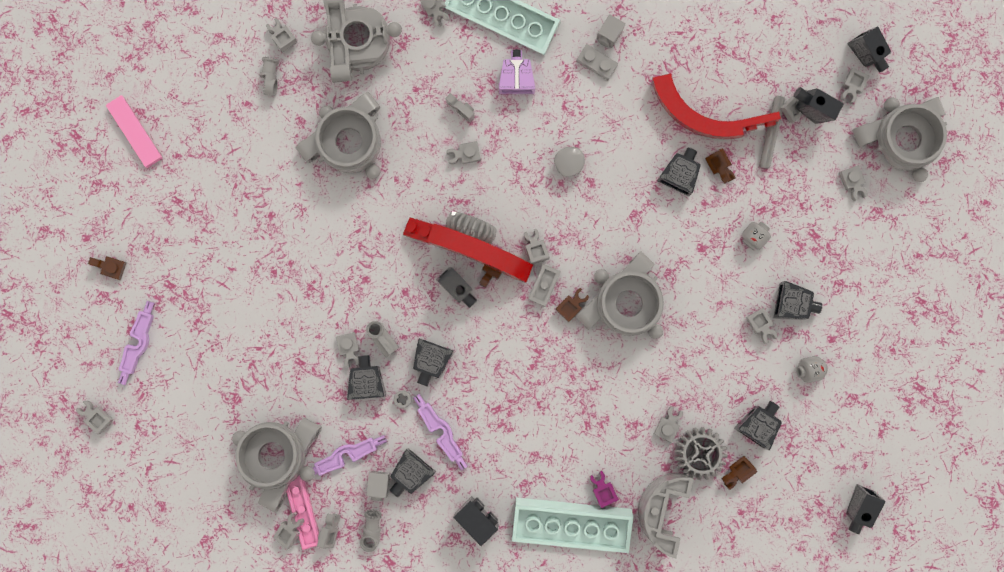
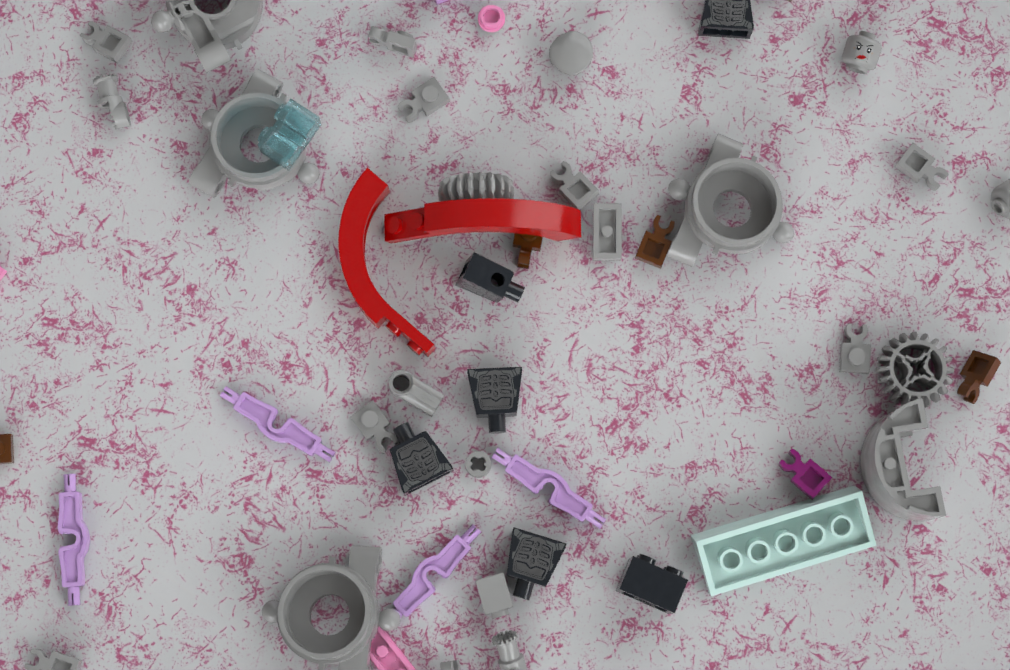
camera: 25 degrees left, 5 degrees down
(283, 314) = (290, 432): none -> lavender piece
(365, 145) = (289, 134): none -> clear light blue brick
(383, 223) = (354, 224): none -> red arch
(529, 117) = (491, 18): none -> bright pink plate
(761, 425) = (978, 300): torso -> none
(795, 302) = (951, 119): torso -> none

